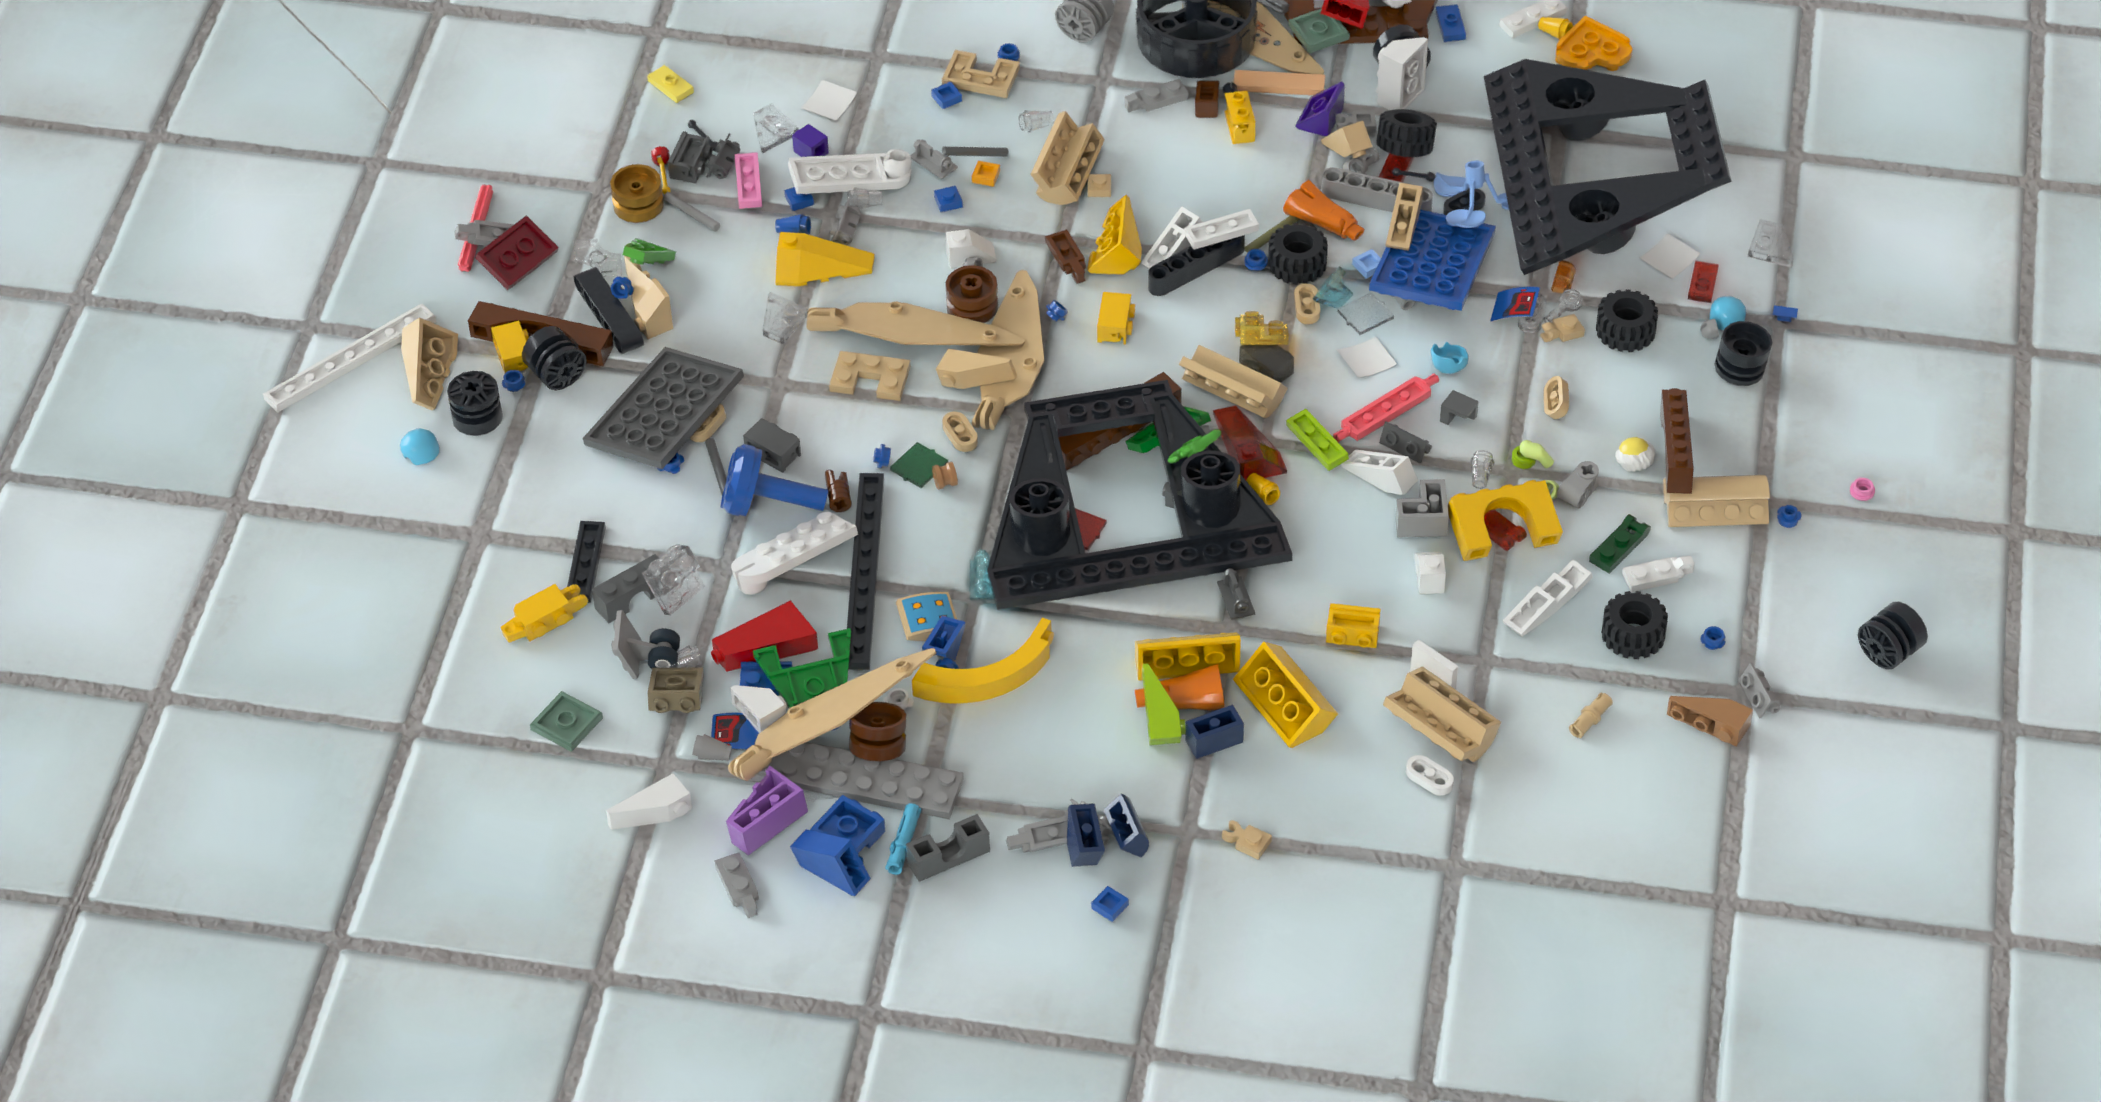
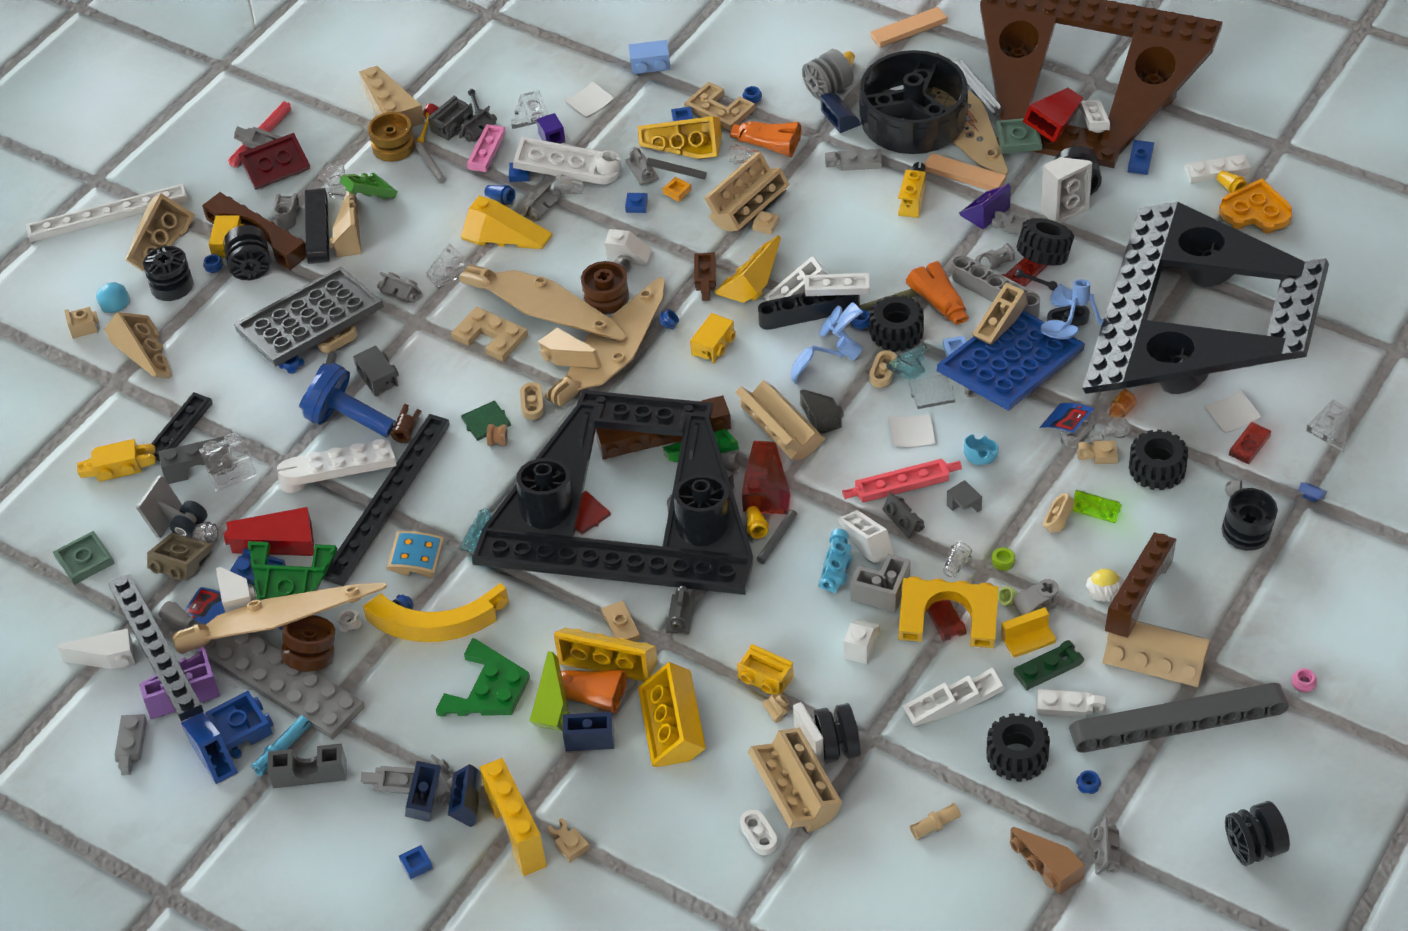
camera: 25 degrees right, 0 degrees up
(403, 481) = (81, 322): none -> tan brick
(479, 481) = (138, 339): none -> tan wedge
(561, 302) = (286, 210): none -> light grey piece
(601, 150) = (388, 96): none -> tan wedge
(618, 291) = (330, 209): blue plate -> none
(670, 83) = (474, 56): light yellow plate -> none
(717, 781) = (156, 648): none -> plate
(752, 352) = (392, 282): none -> light grey hinge
(874, 38) = (649, 57): none -> light blue brick
(882, 456) = (457, 404): blue plate -> none
(946, 637) = (411, 578): blue slope -> none
(962, 117) = (689, 137): none -> yellow wedge
(1057, 92) = (775, 137): none -> orange piece
(1091, 720) = (496, 688): none -> green wing
(1112, 51) = (838, 112): none -> dark blue brick
(1168, 805) = (508, 803): none -> yellow arch
(1179, 621) = (620, 621): none -> tan plate
(1194, 446) = (703, 467): bright green piece -> none
(1207, 99) = (893, 173): reddish brown slope -> none
(1254, 331) = (824, 381): clear yellow plate -> none
(1259, 290) = (845, 345): none -> light blue plant
(1289, 496) = (776, 537): none -> dark grey bar
(1317, 439) = (826, 492): lime plate -> none
(1349, 140) = (990, 235): tan slope -> none
(1365, 504) = (836, 561): none -> medium azure brick
(1381, 657) = (777, 707): none -> tan plate
(1469, 654) = (838, 732): none -> black wheel
(1537, 452) = (1012, 557): yellowish green arm -> none
(1585, 519) = (1027, 632): none -> yellow panel
(1589, 381) = (1096, 506): none -> clear neon green hinge
(1727, 311) = (1259, 476): medium azure hair -> none
(1765, 556) = (1178, 717): none -> dark grey beam
(1788, 516) = (1214, 684): blue plate -> none

